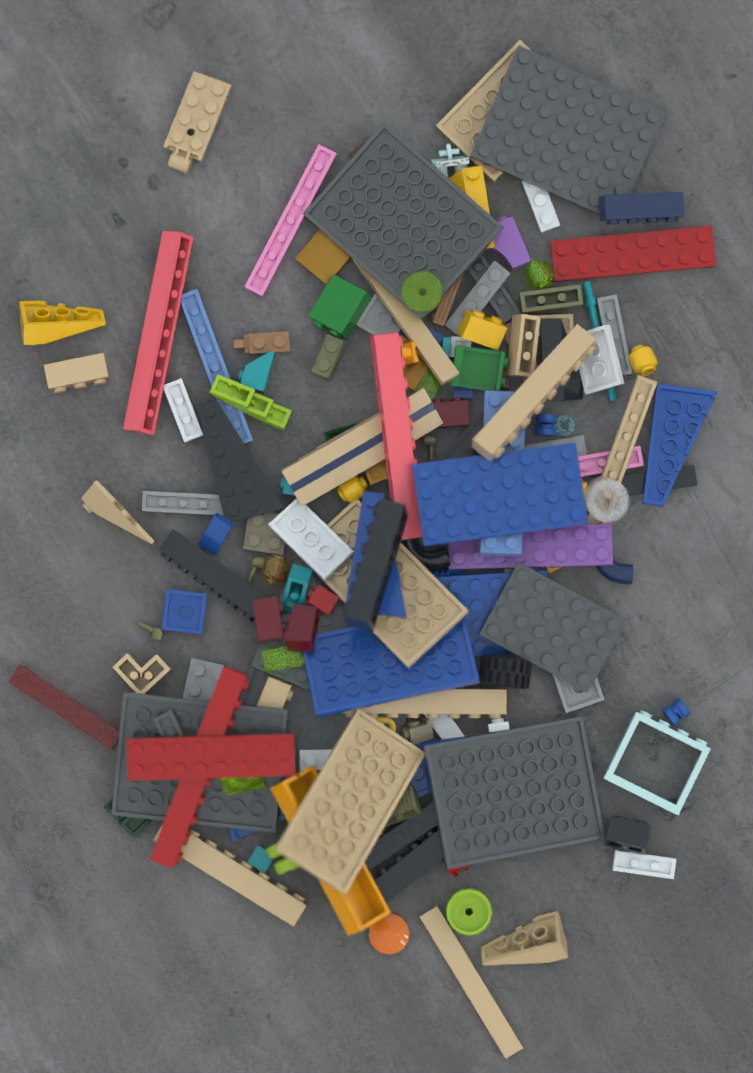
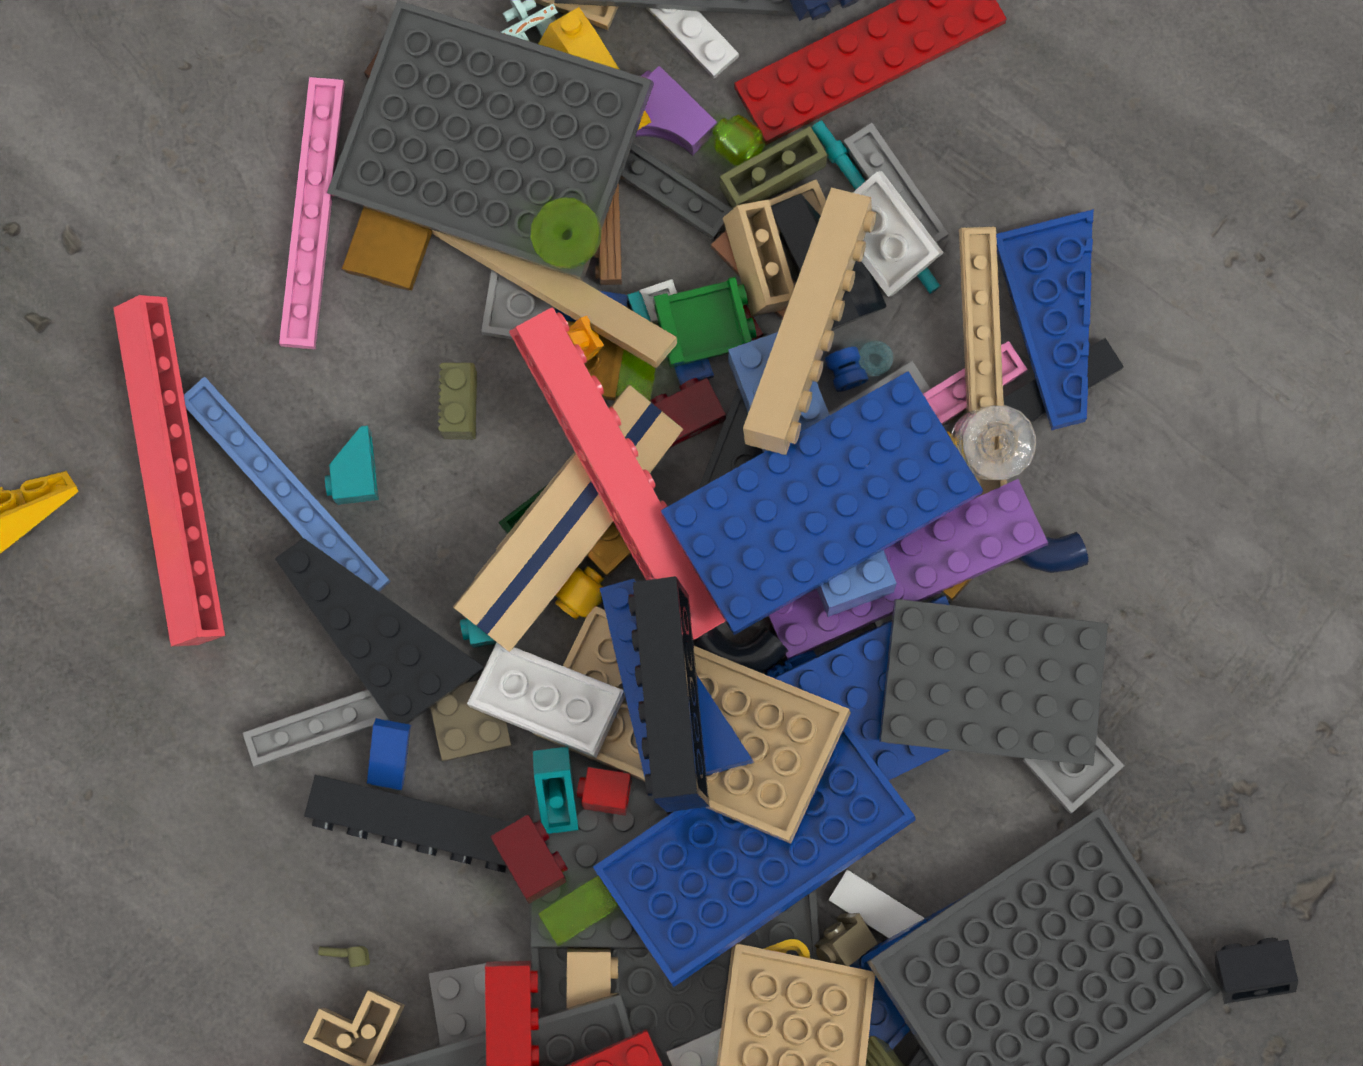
camera: 25 degrees left, 5 degrees down
(77, 372) = (62, 586): tan brick -> none
(102, 503) = (192, 782): tan wedge -> none
(183, 410) = (257, 578): white plate -> none
(184, 611) = (387, 901): blue plate -> none
(197, 112) = (100, 101): tan hinge -> none
(249, 402) = (360, 521): lime slope -> none
(256, 563) = (475, 773): olive hand -> none
(264, 342) = (344, 419): medium nougat hinge -> none
(274, 569) = (507, 772): clear yellow head -> none
(302, 628) = (589, 849): dark red brick -> none
(339, 307) = (444, 314): green brick -> none
(430, 441) = (673, 467): olive hand -> none
(450, 702) = (878, 872): tan brick -> none
(480, 294) = (657, 215): light grey plate -> none
(482, 329) = (683, 258): yellow brick -> none
(498, 725) = (971, 878): white plate -> none
(505, 672) = (948, 785): black tyre -> none
(642, 360) = (956, 207): yellow head -> none
(644, 864) = (1300, 1008): white tile -> none
(663, 727) = (1268, 773): light aqua window -> none
(676, 711) = (1246, 738): blue wheel -> none

